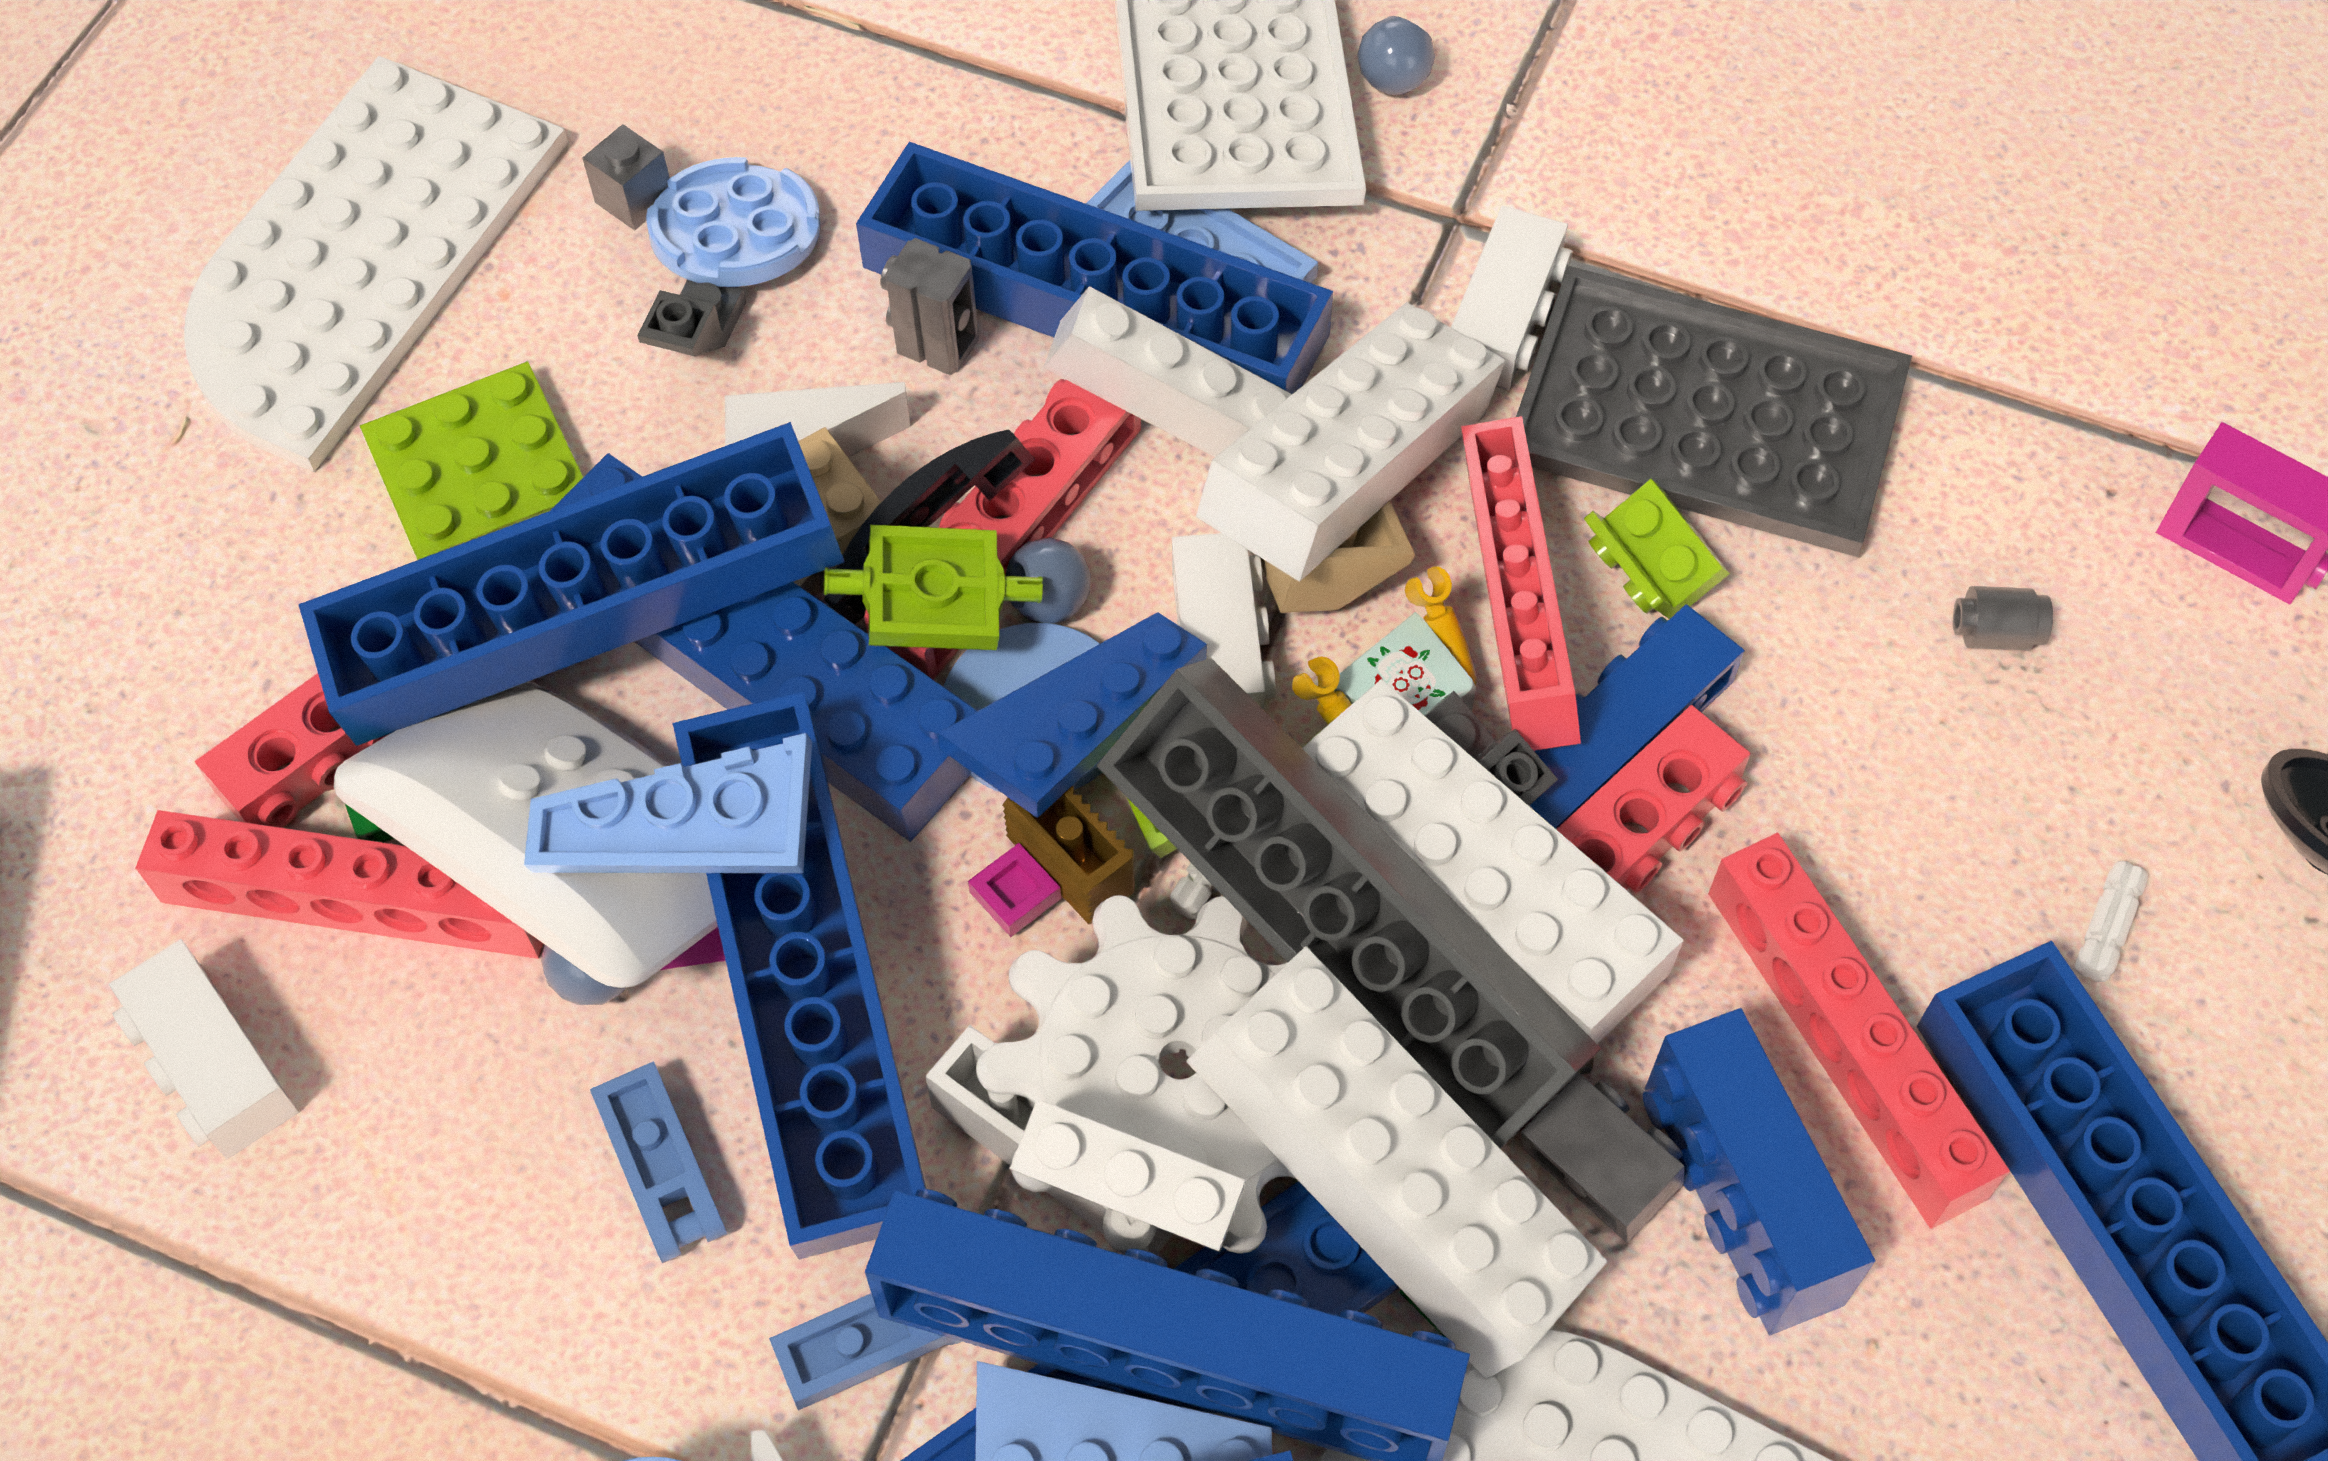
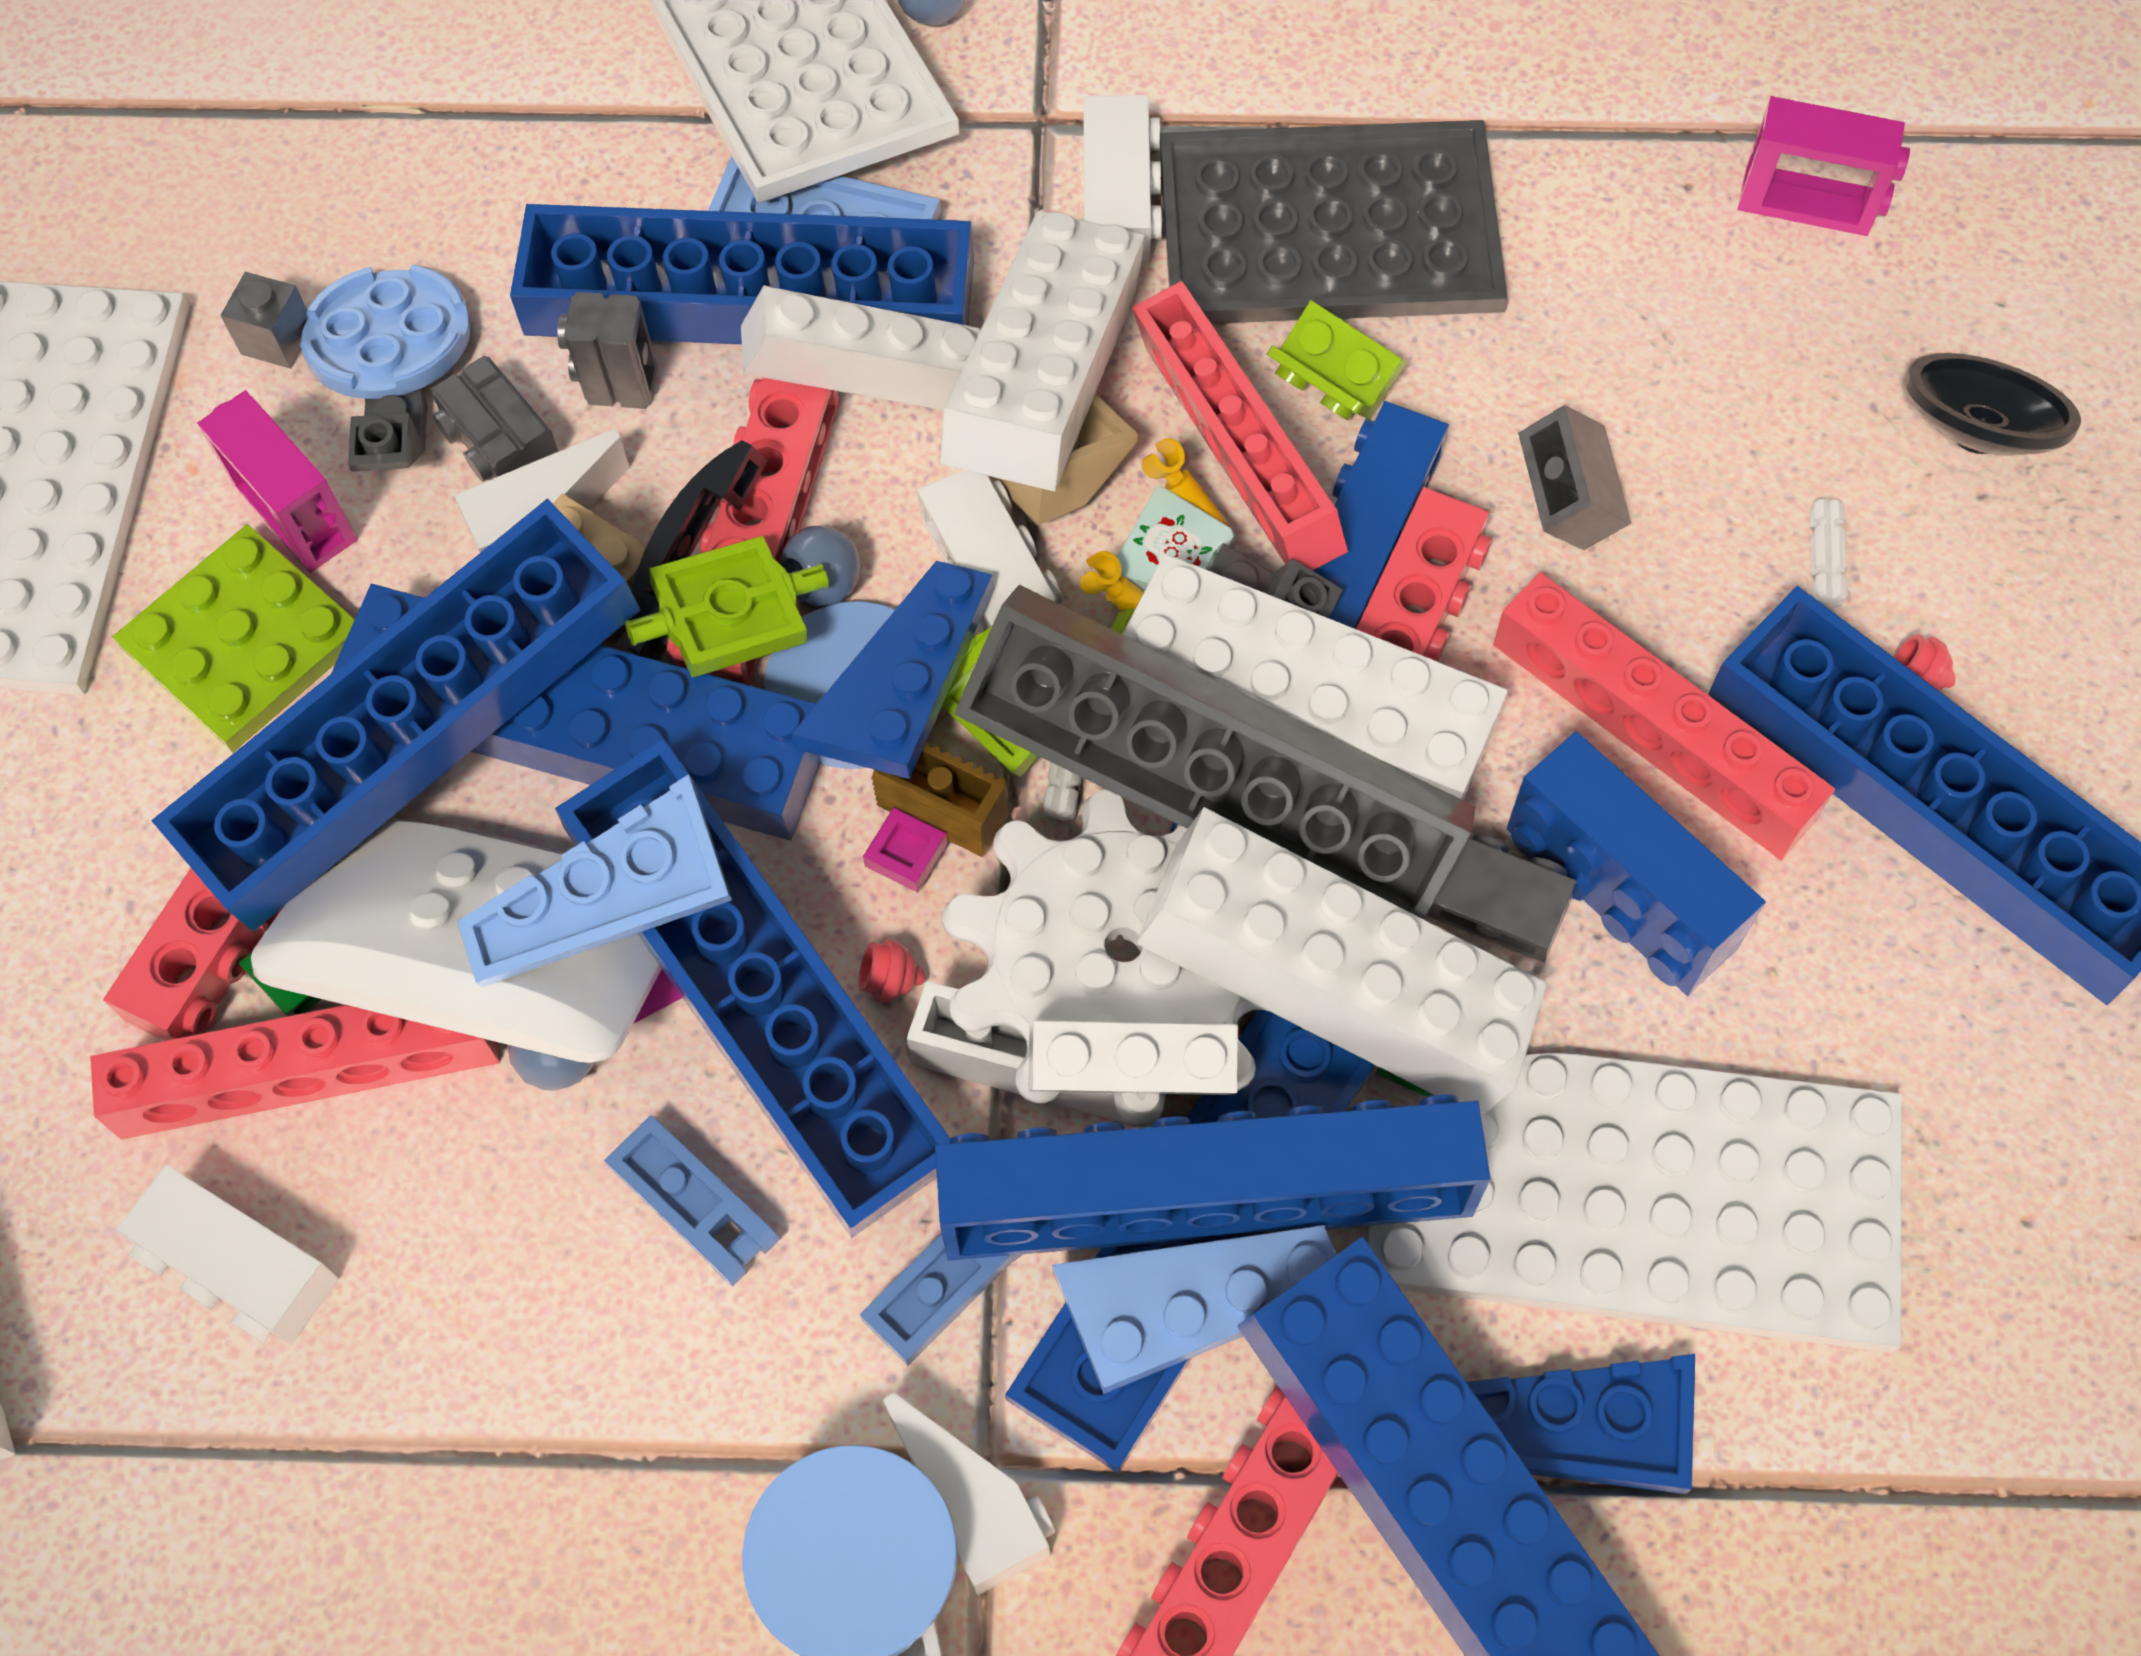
camera: 20 degrees left, 5 degrees up
(567, 329) = (277, 480): none -> dark pink window
(793, 335) = (490, 420): none -> flat silver brick
(947, 1005) = (888, 971): none -> coral plate
(1858, 749) = (1574, 478): none -> flat silver brick
(2003, 618) = (1646, 325): flat silver brick -> none
(2174, 1075) = (1928, 659): none -> coral plate

